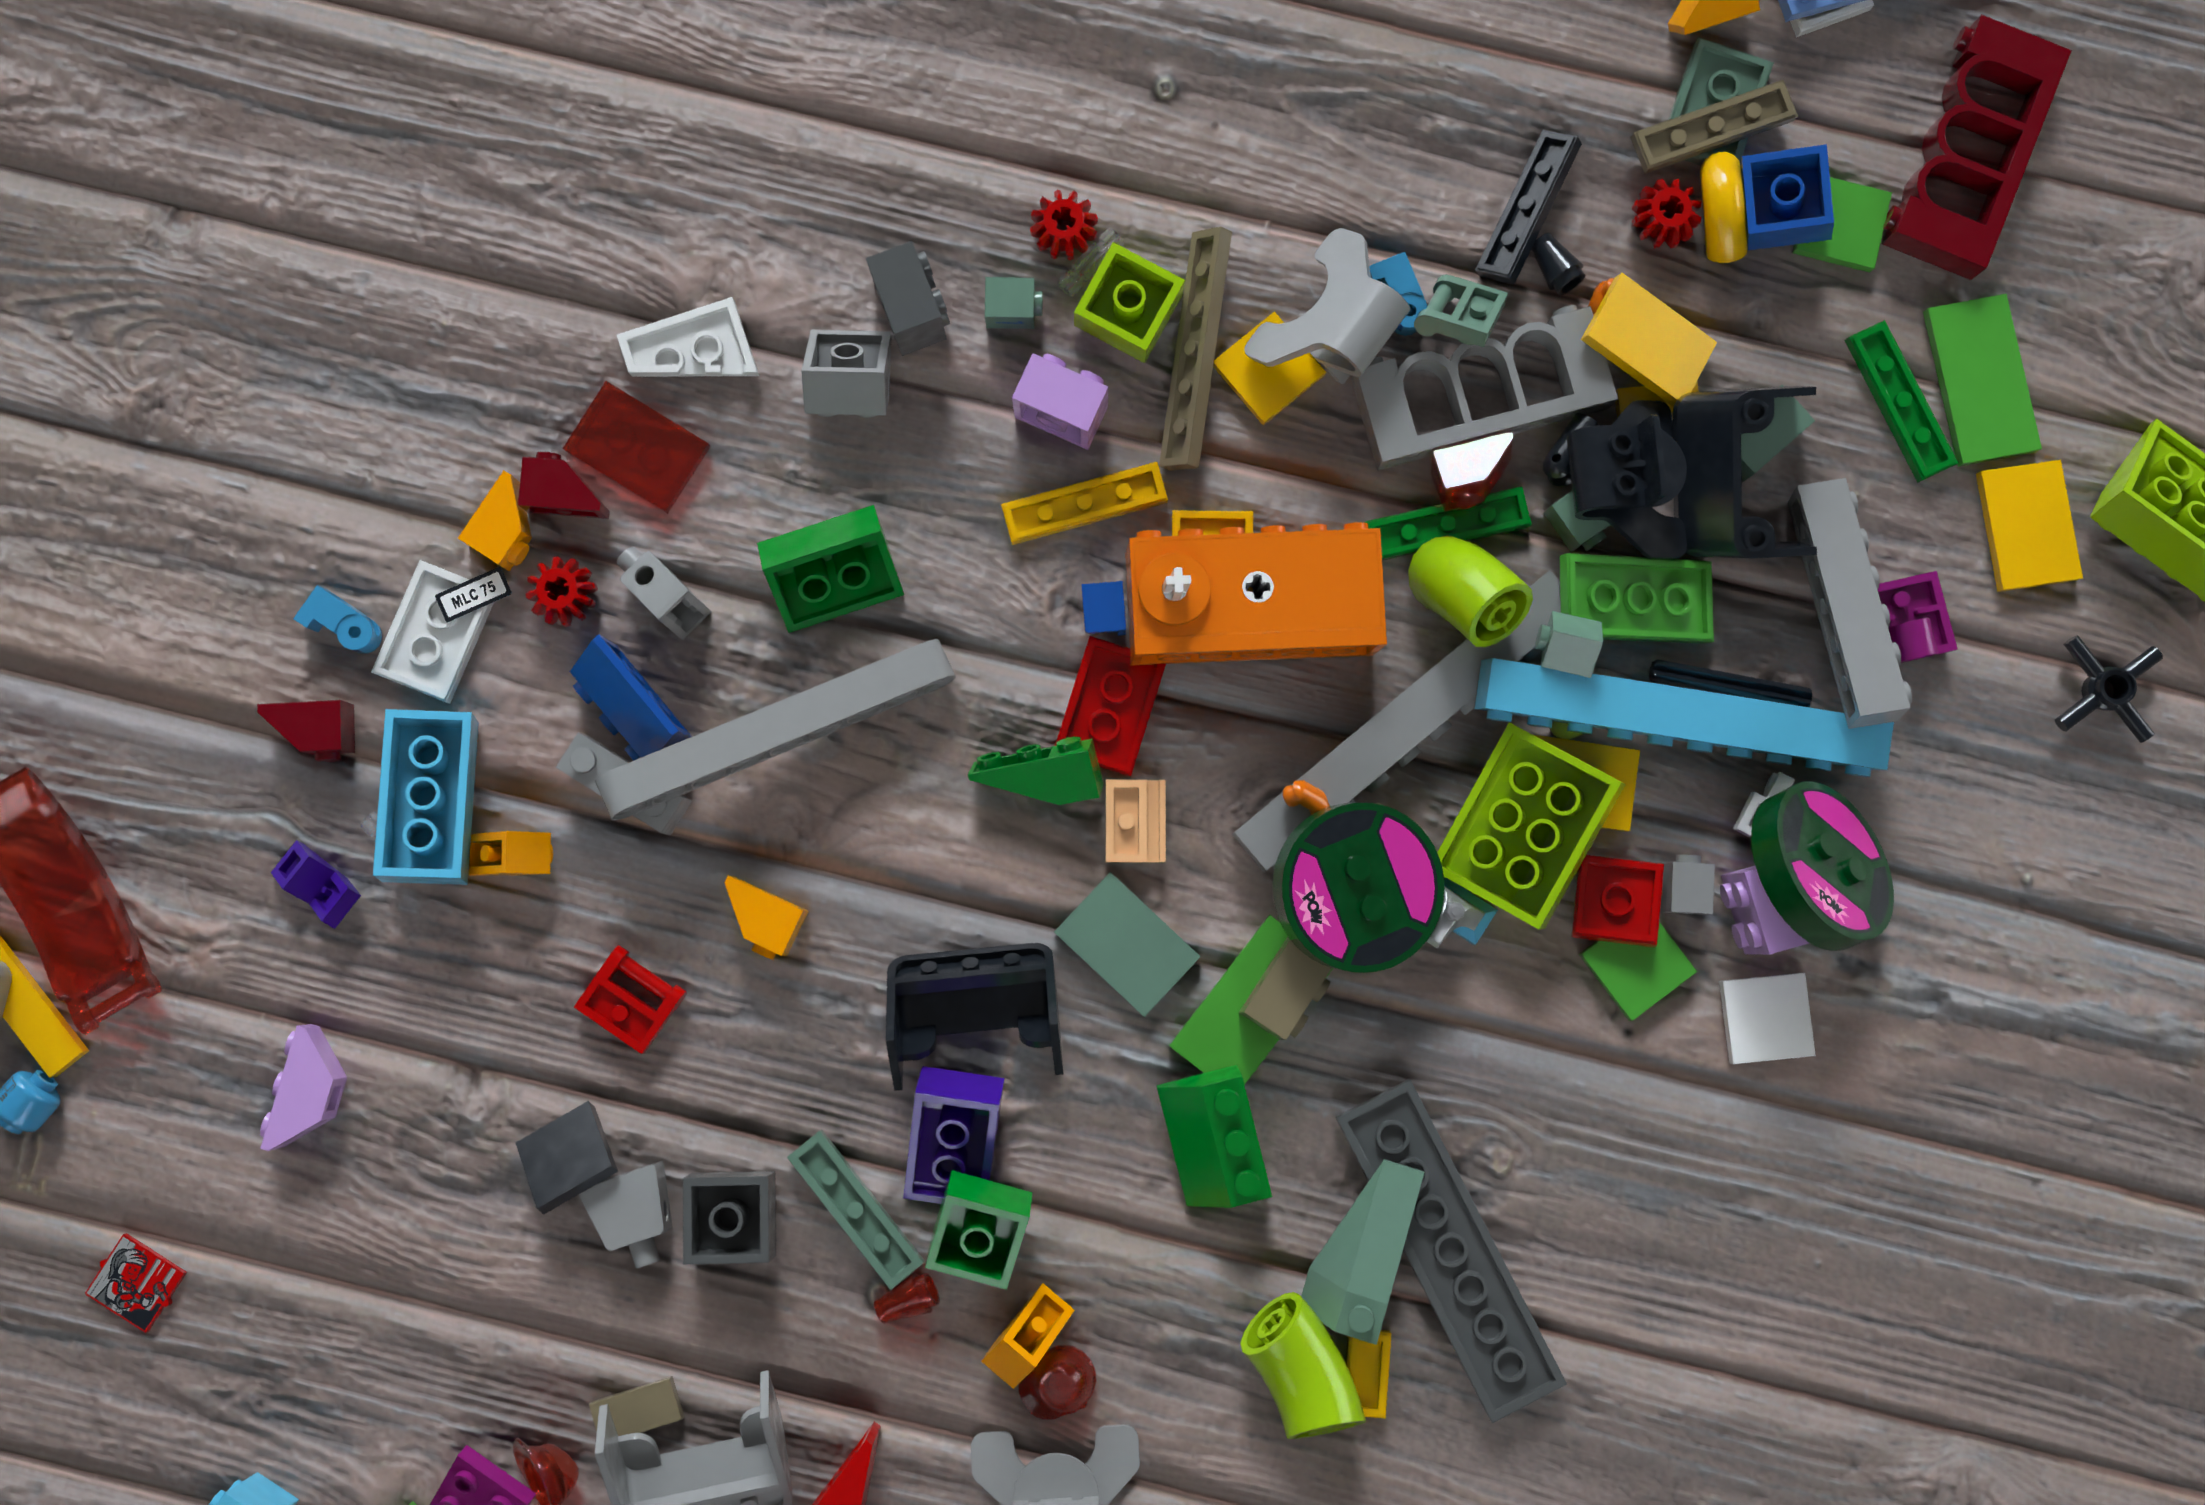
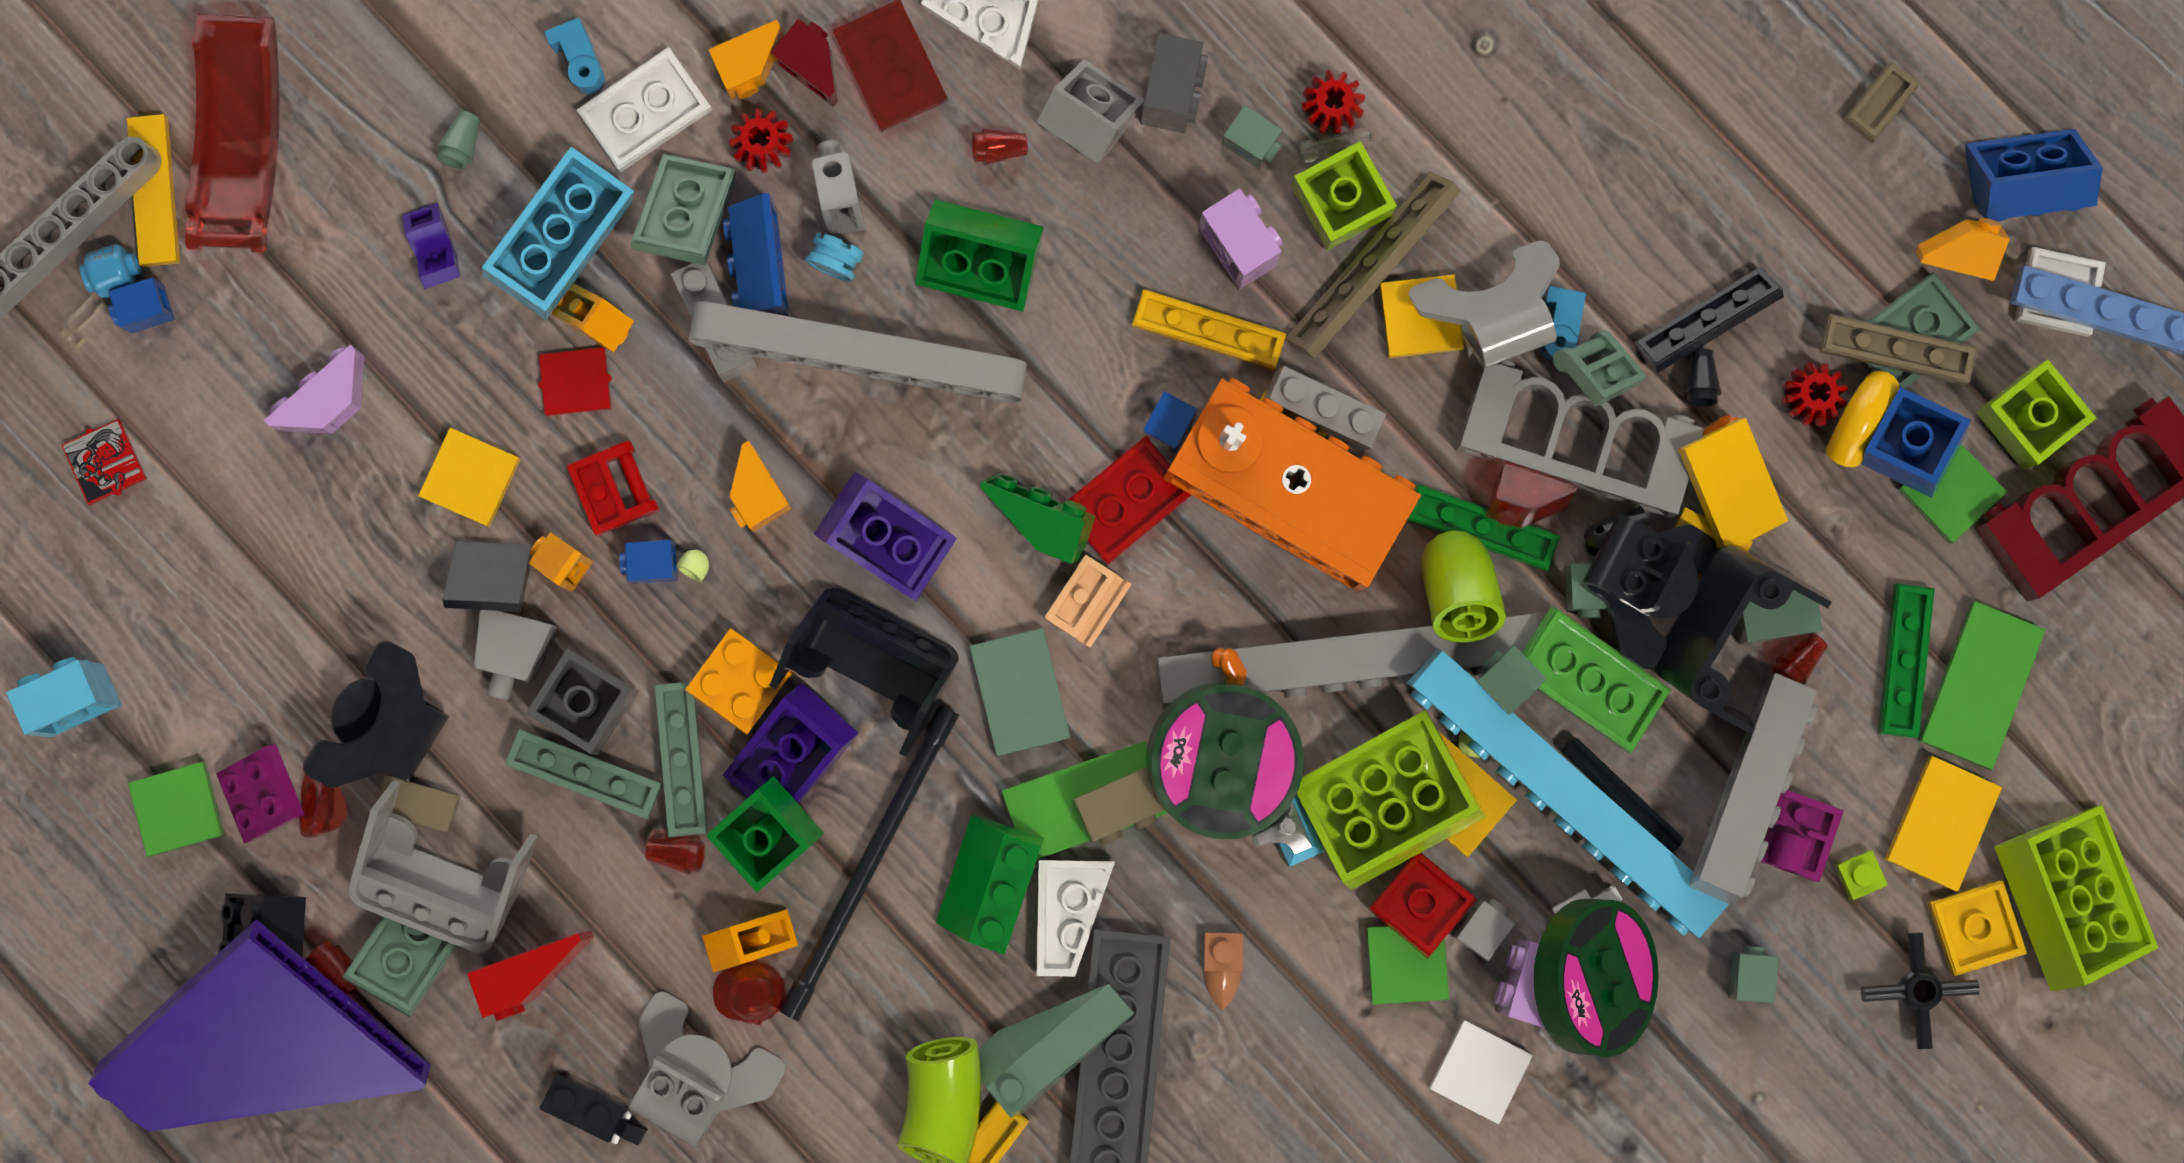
camera: 30 degrees right, 0 degrees up
(75, 1115) = (140, 306): none -> blue brick
(280, 772) = (459, 141): none -> sand green cone
(314, 726) = (507, 125): dark red slope -> none
(473, 594) = (692, 99): sticker -> none
(490, 1075) = (469, 477): none -> yellow tile
(529, 700) = (683, 209): none -> sand green tile
(531, 923) = (575, 381): none -> red piece
(551, 1360) = (379, 722): none -> black piece
(624, 1100) = (559, 561): none -> light orange slope
(698, 655) = (834, 257): none -> medium azure wheel
(708, 1046) = (649, 562): none -> blue brick
(751, 1021) = (694, 565): none -> yellowish green hinge
(774, 1282) = (583, 774): none -> sand green plate
(782, 458) = (998, 145): none -> clear red cone
(860, 1104) = (736, 681): none -> light orange plate
(910, 881) = (885, 536): none -> dark purple slope
(1104, 1345) = (804, 985): none -> black piece
(1238, 505) = (1325, 408): none -> light grey brick
(1300, 1117) = (1066, 912): none -> white wing
(1472, 1073) = (1223, 965): none -> nougat plate
(1809, 459) = (1801, 659): none -> clear red cone
(1875, 106) = (2036, 415): none -> lime brick
(1953, 772) = (1753, 975): none -> sand green brick
(1987, 619) = (1861, 875): none -> lime plate
(2119, 600) = (1977, 928): none -> yellow tile

